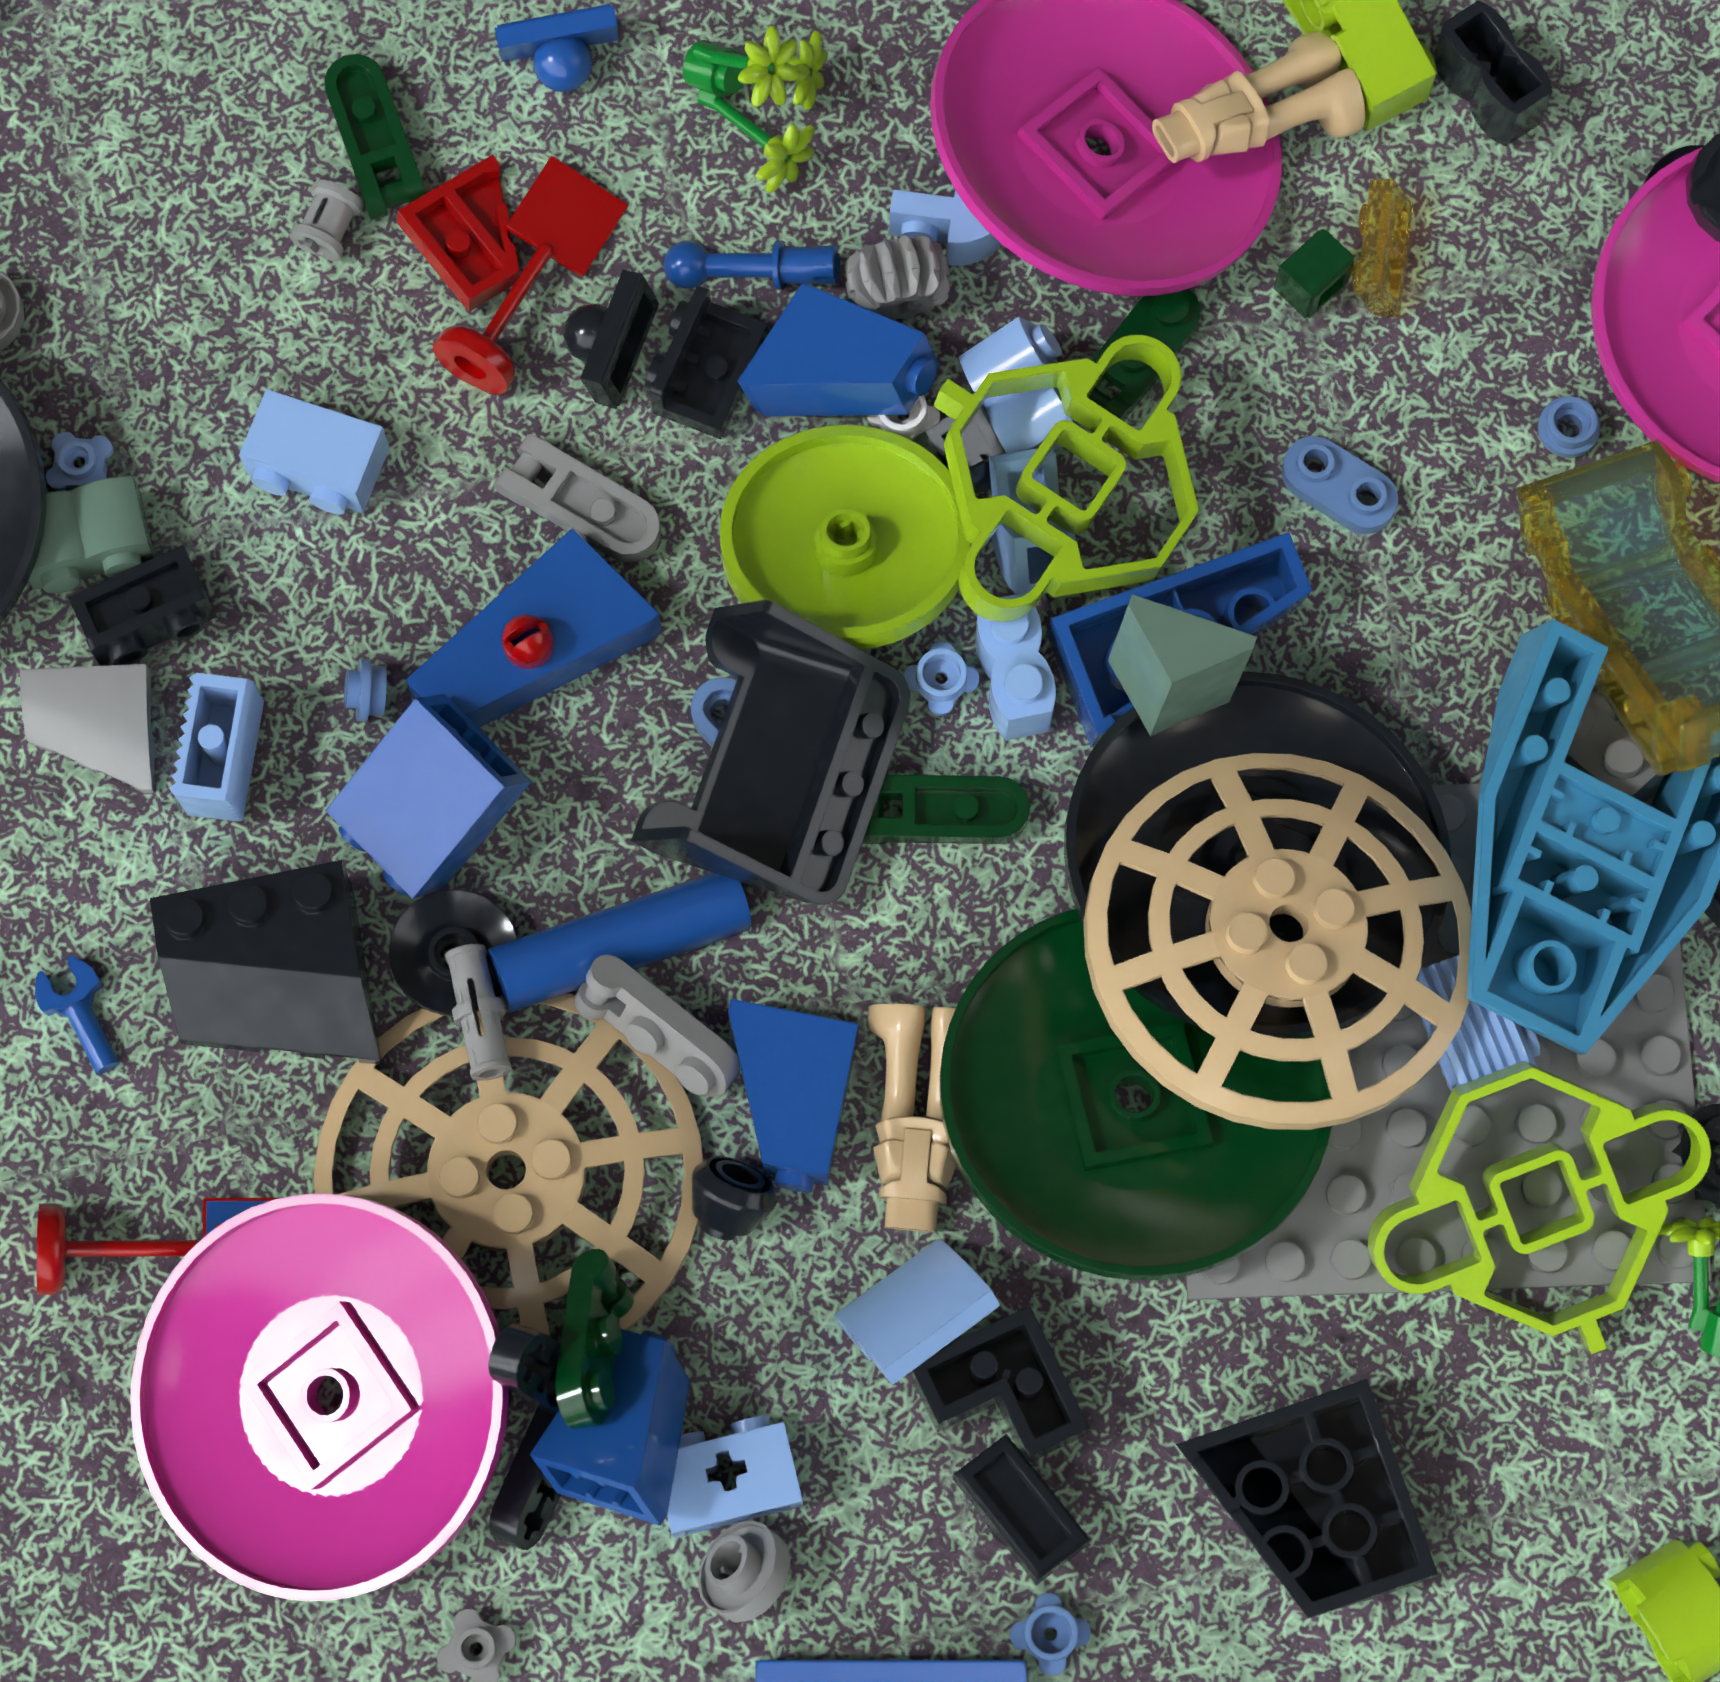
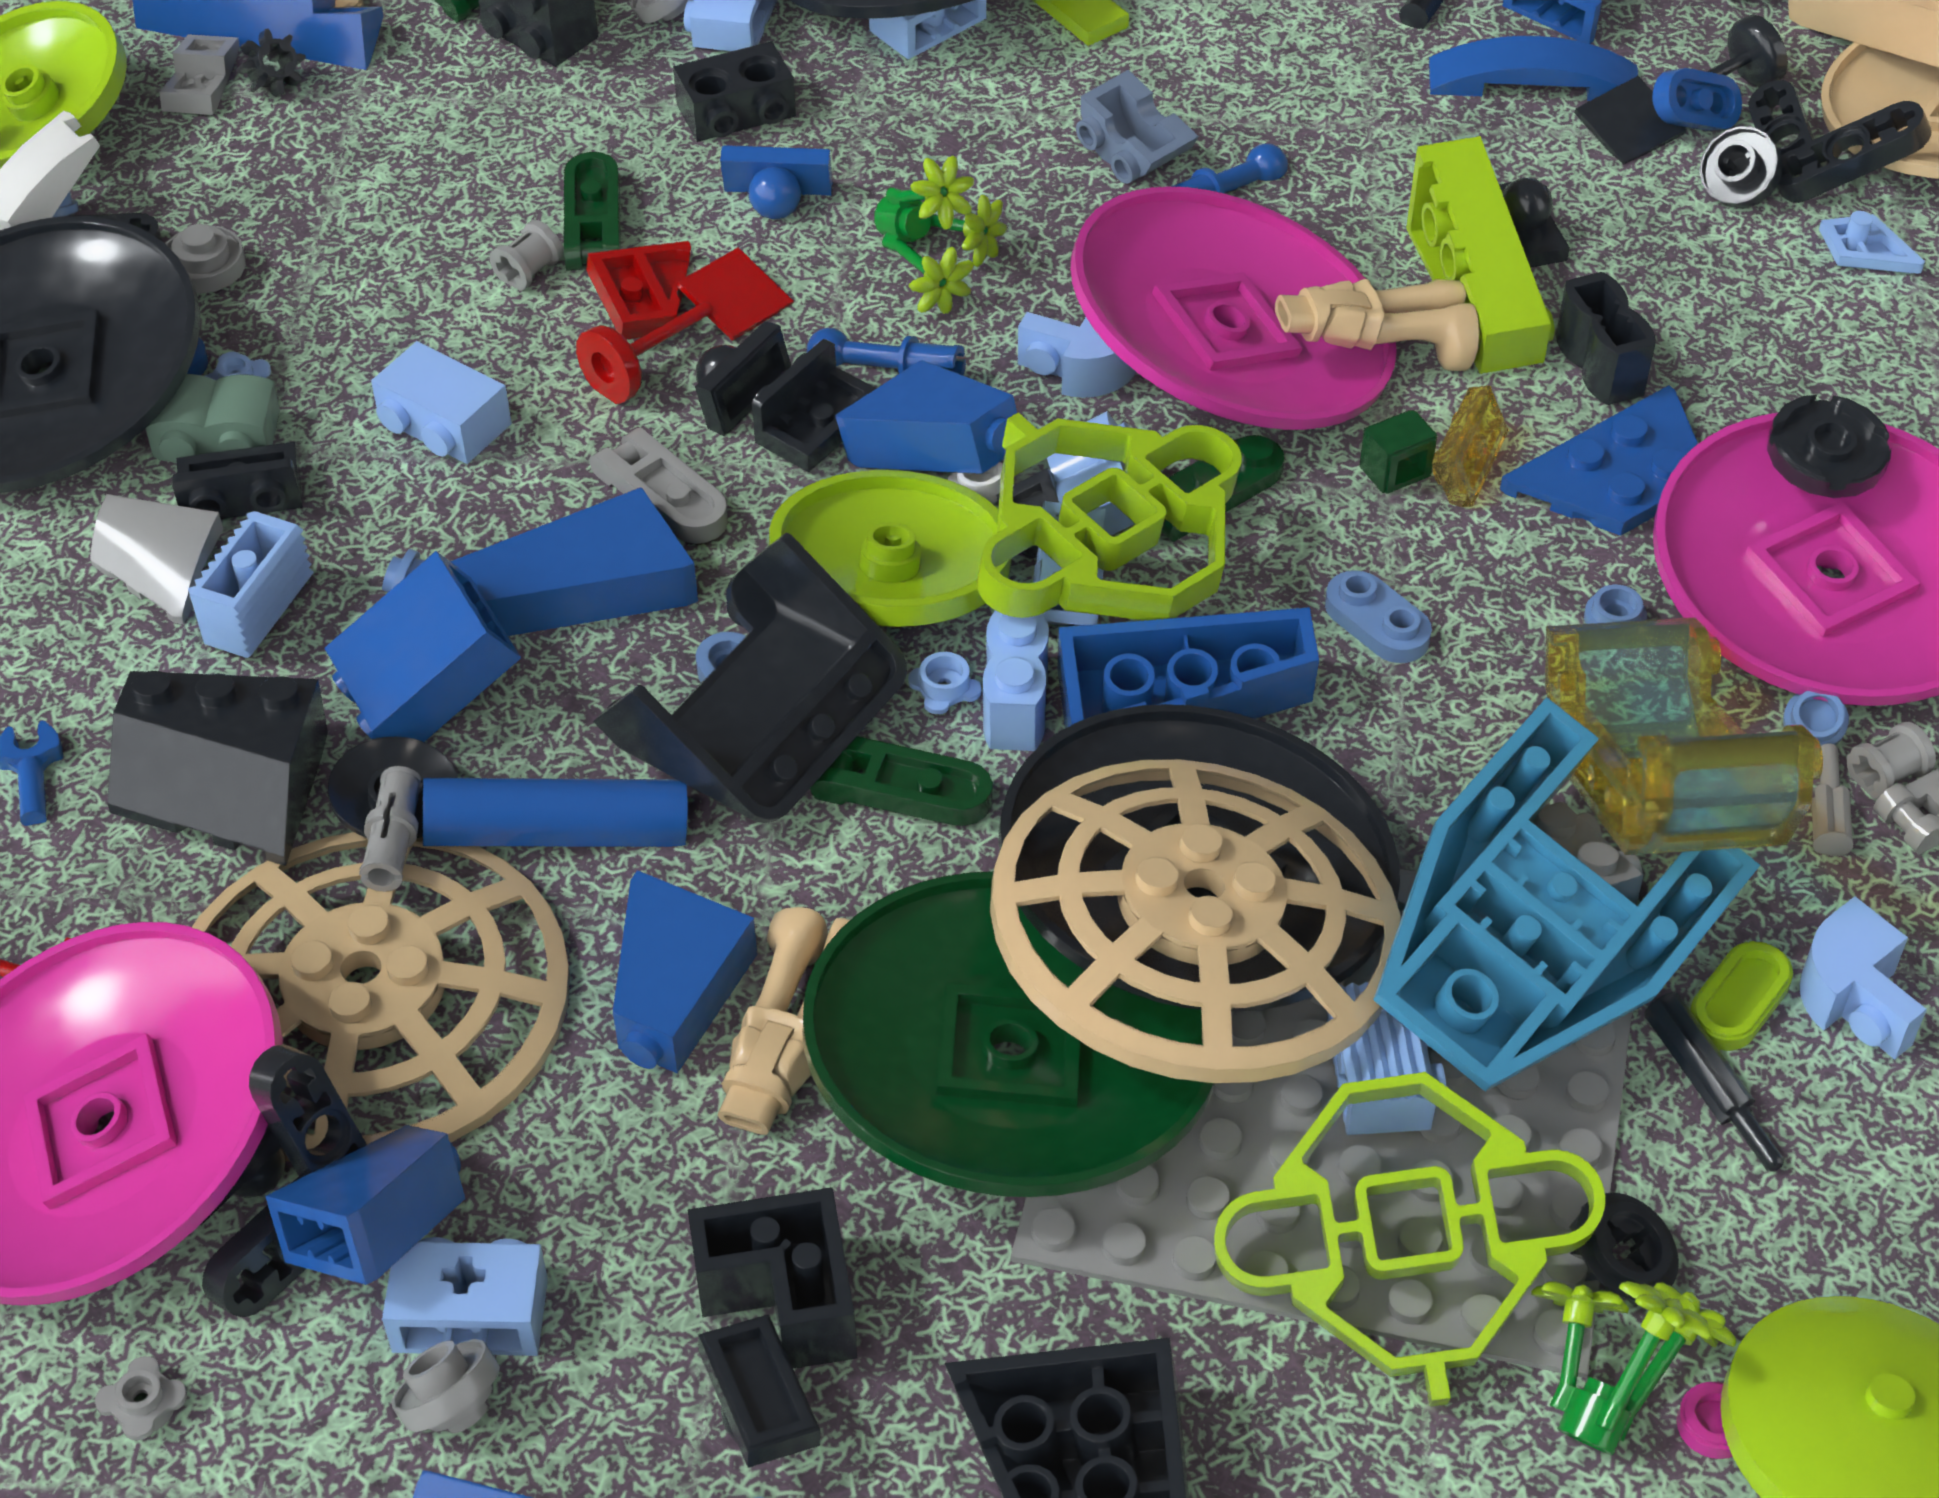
camera: 15 degrees right, 25 degrees down
(532, 650) = (563, 552): red hinge -> none
(590, 1340) = (369, 1110): dark green plate -> none
(657, 1026) = (558, 882): light grey plate -> none
(730, 1197) = (570, 1047): black cone -> none
(899, 277) = (1016, 368): light grey gear -> none
(917, 1310) = (718, 1178): light blue slope -> none
(1176, 662) = (1165, 660): sand green slope -> none
(1536, 228) = (1612, 469): none -> blue wing

